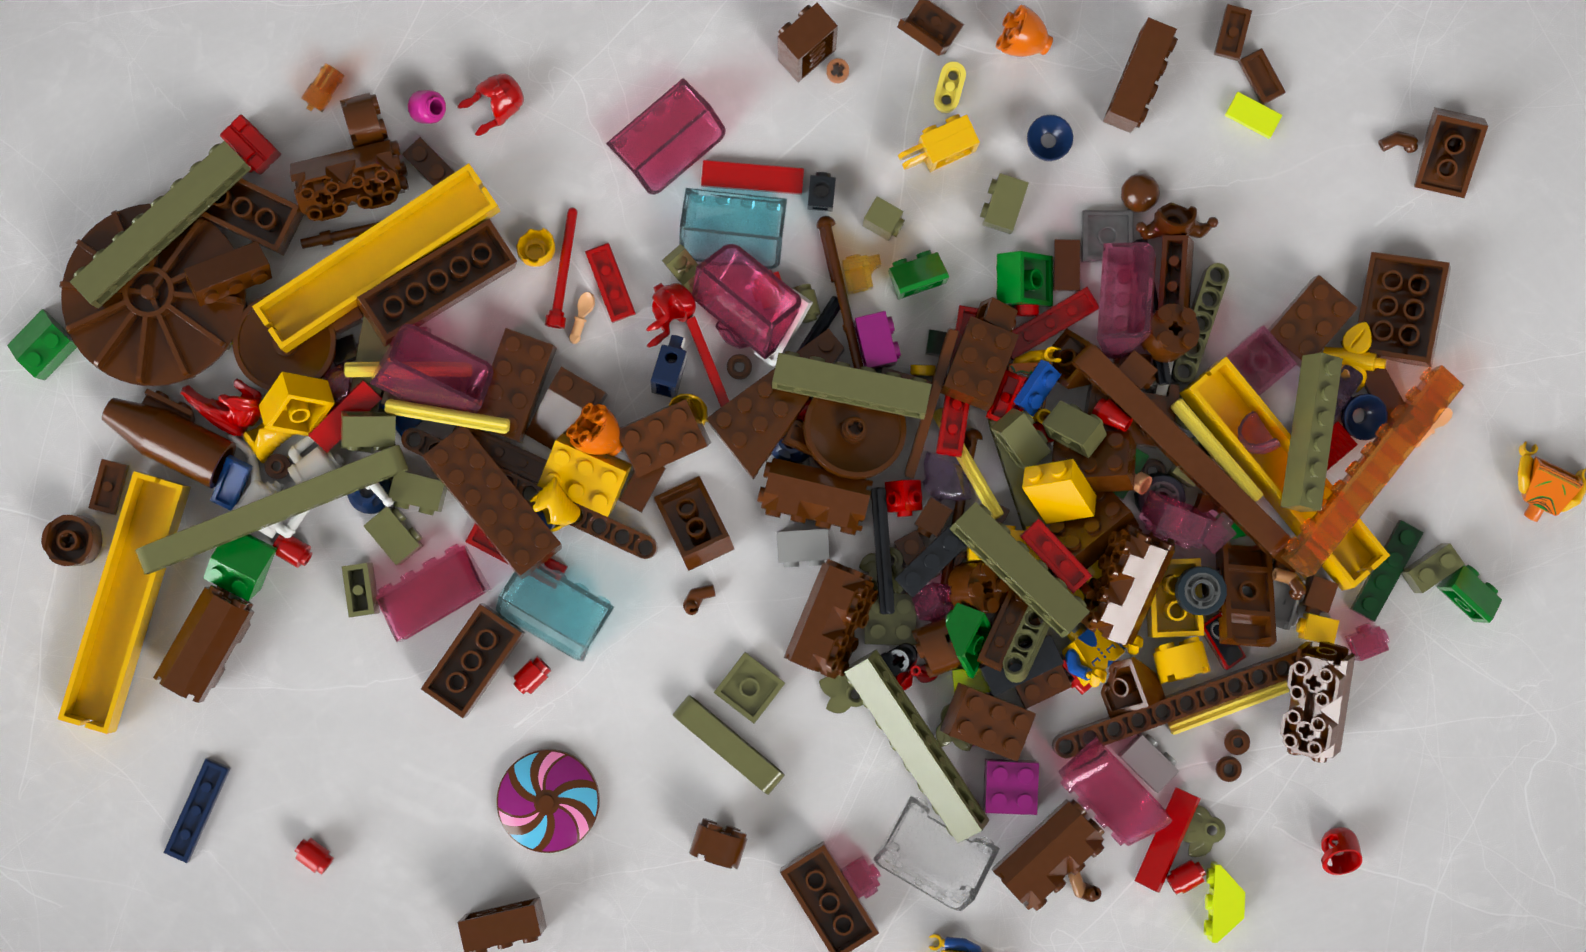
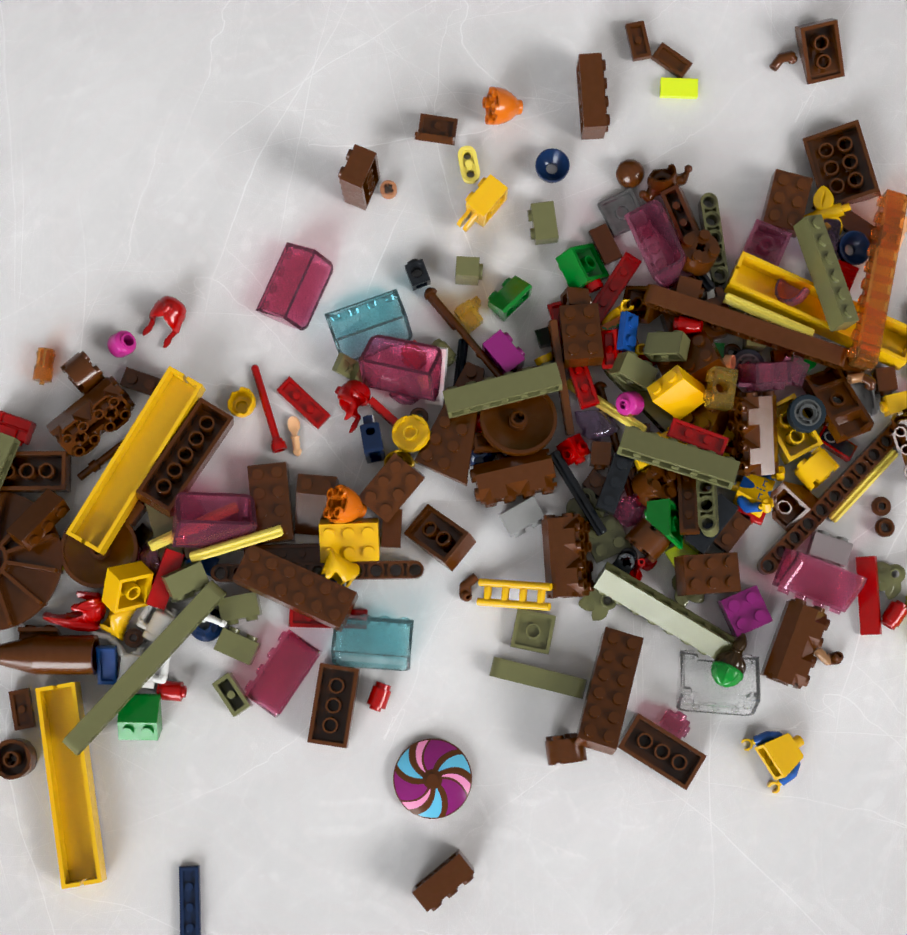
camera: 25 degrees left, 5 degrees down
(205, 643) = (141, 784): reddish brown brick -> none
(313, 855) = (287, 897): red brick -> none
(718, 384) = (411, 433): none -> yellow tile
(751, 649) = (523, 586): none -> yellow bar
(752, 177) = (365, 286): red tile -> none
(802, 802) = (609, 691): none -> reddish brown brick
(958, 842) = (729, 665): none -> piece
(996, 475) = (629, 403): none -> dark pink head
(1125, 506) = (727, 379): none -> clear yellow brick

